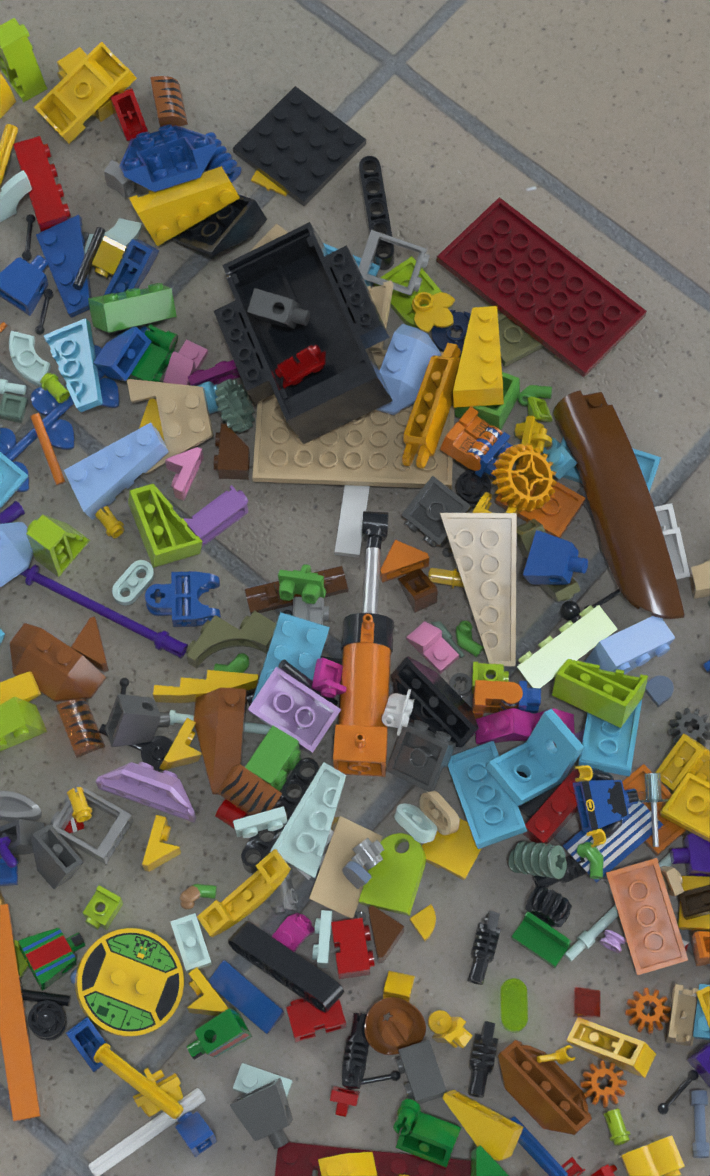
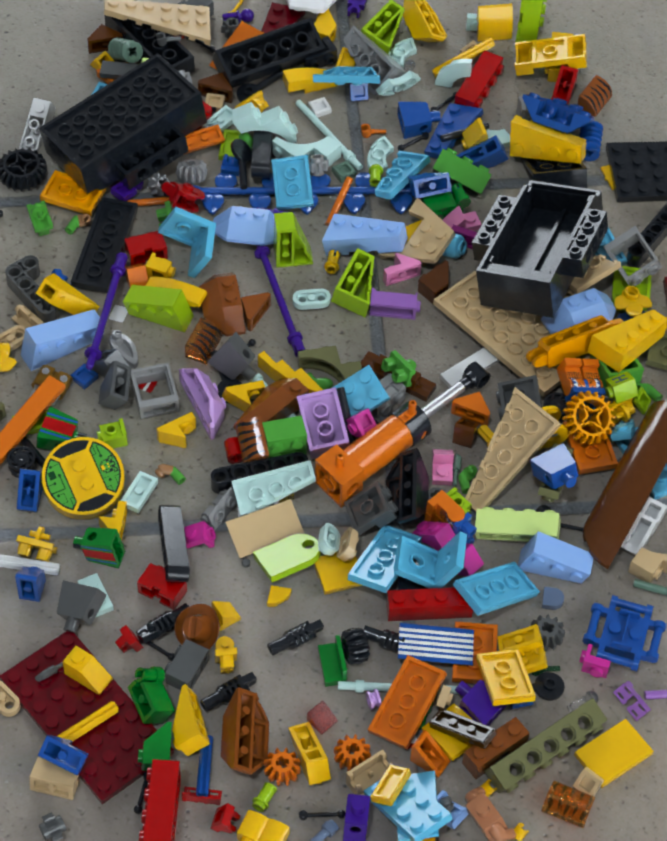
camera: 40 degrees right, 15 degrees down
(79, 804) = (154, 372): yellow pin -> none
(138, 1081) = (29, 501): yellow axle -> none
(172, 598) = (329, 326): blue piece -> none
(234, 405) = (462, 257): sand green gear -> none
(245, 997) = (136, 544): blue slope -> none
(247, 897) = (193, 496): yellow slope -> none
(268, 820) = (241, 458): light aqua plate -> none
(277, 309) = (539, 226): dark grey torso -> none
(310, 361) = (526, 258): red hinge -> none
(322, 950) = (211, 553): light aqua plate -> none
(353, 956) = (220, 573): red brick -> none
(356, 874) = (265, 534): sand blue tile -> none
(368, 853) = (283, 529): light grey gear -> none
(385, 932) = (247, 579): reddish brown slope -> none
(398, 711) = (381, 471): white hinge -> none
(514, 1005) = (279, 682): clear neon green tile -> none
(519, 417) = (621, 387): none -> lime brick
(538, 860) = (376, 615): sand green piece -> none
(559, 1056) = (273, 730): yellow hand -> none
(595, 858) = (410, 642): bright green arm -> none
(599, 691) = (510, 560): lime wedge -> none
(601, 803) = (445, 613): torso -> none
(653, 795) = (481, 642): clear light blue piece -> none

